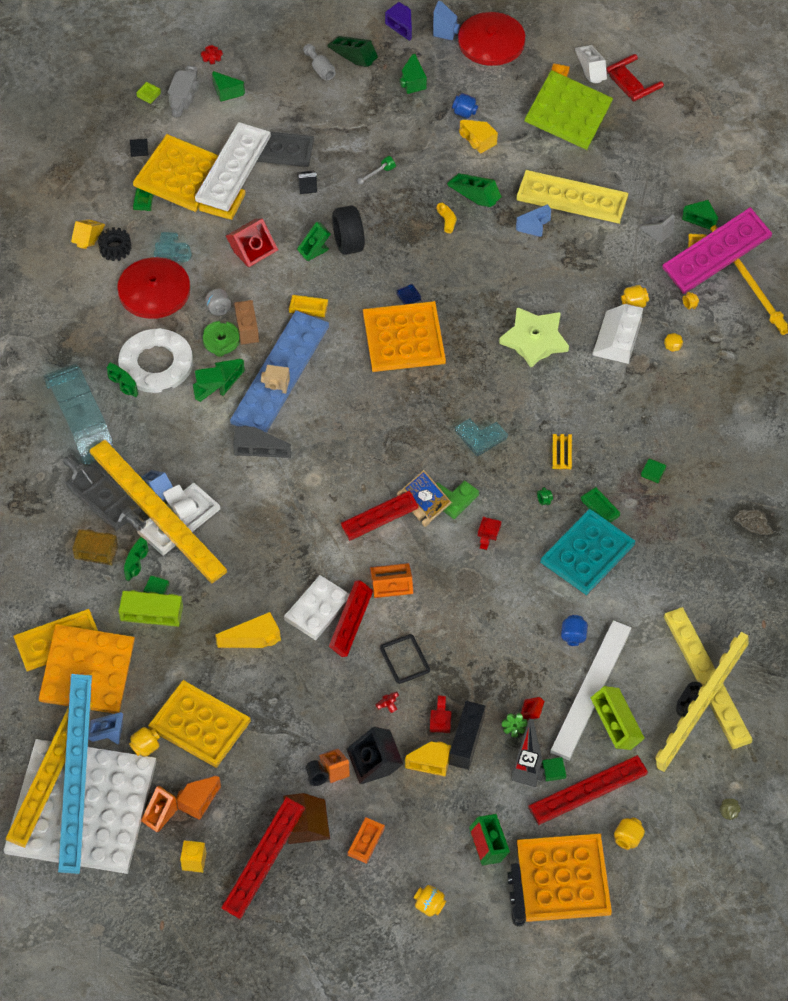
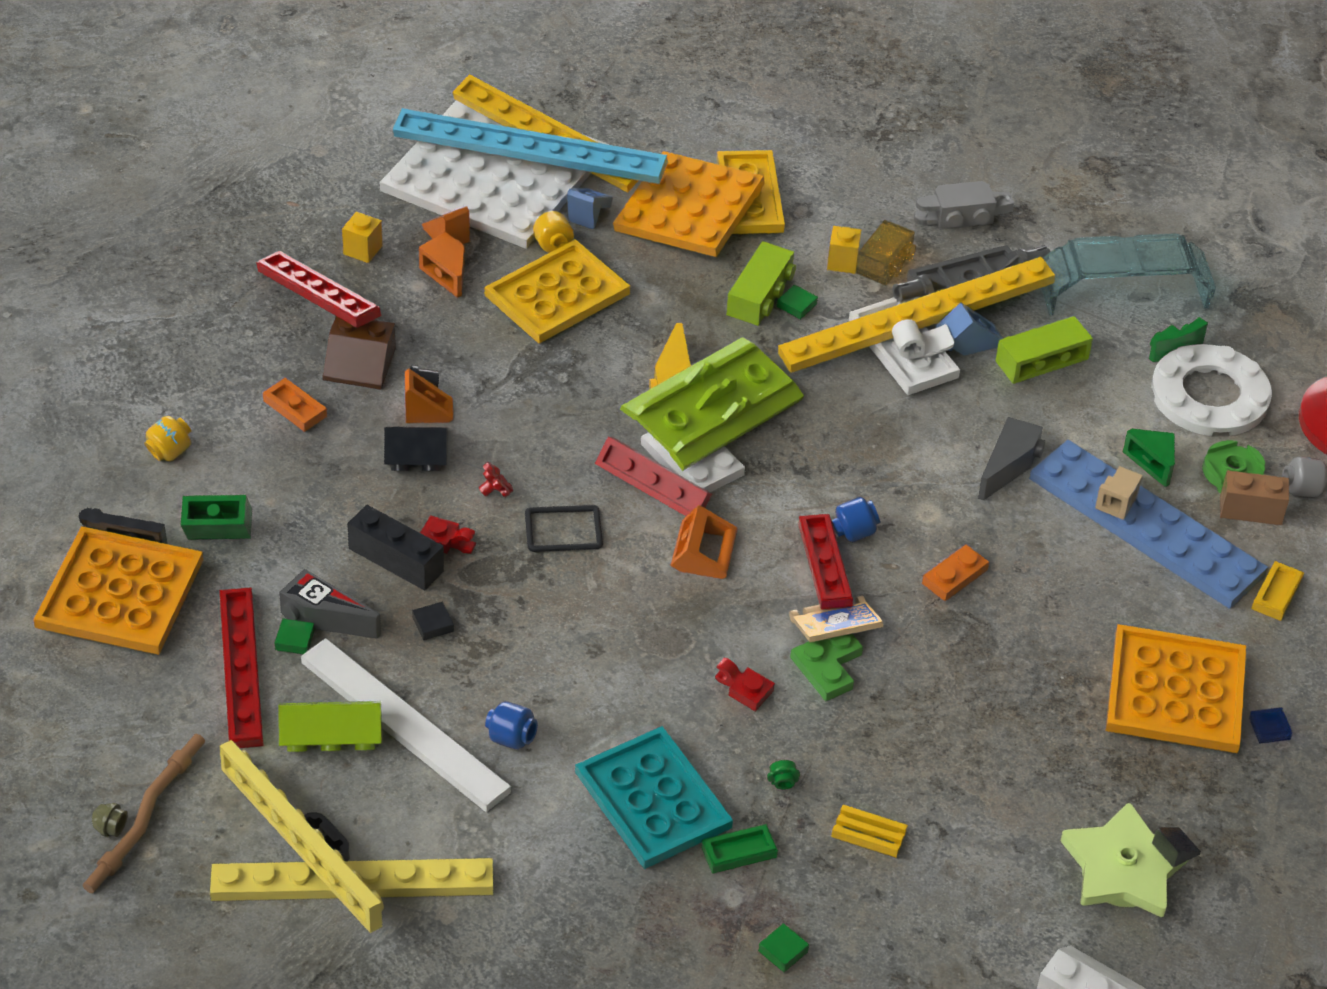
camera: 105 degrees right, 10 degrees down
(32, 516) = (962, 205): none -> light grey hinge
(102, 569) = (844, 249): none -> yellow brick
(133, 565) = (847, 282): green slope -> none
(156, 445) = (1043, 349): none -> lime brick
(208, 382) = (1139, 411): green slope -> none
(278, 599) = (714, 402): none -> lime hinge
(342, 506) = (856, 519): none -> blue head
(358, 453) = (955, 572): none -> orange plate
(430, 758) = (380, 493): yellow slope -> none
(479, 440) = (929, 724): clear light blue plate -> none
(509, 701) = (433, 620): none -> black tile
(514, 724) = (389, 608): bright green plant -> none
(522, 311) = (1174, 845): none -> black slope
(532, 708) = (402, 636): red plate -> none
(629, 833) = (141, 683): yellow head -> none
(755, 797) = (112, 861): none -> medium nougat bar

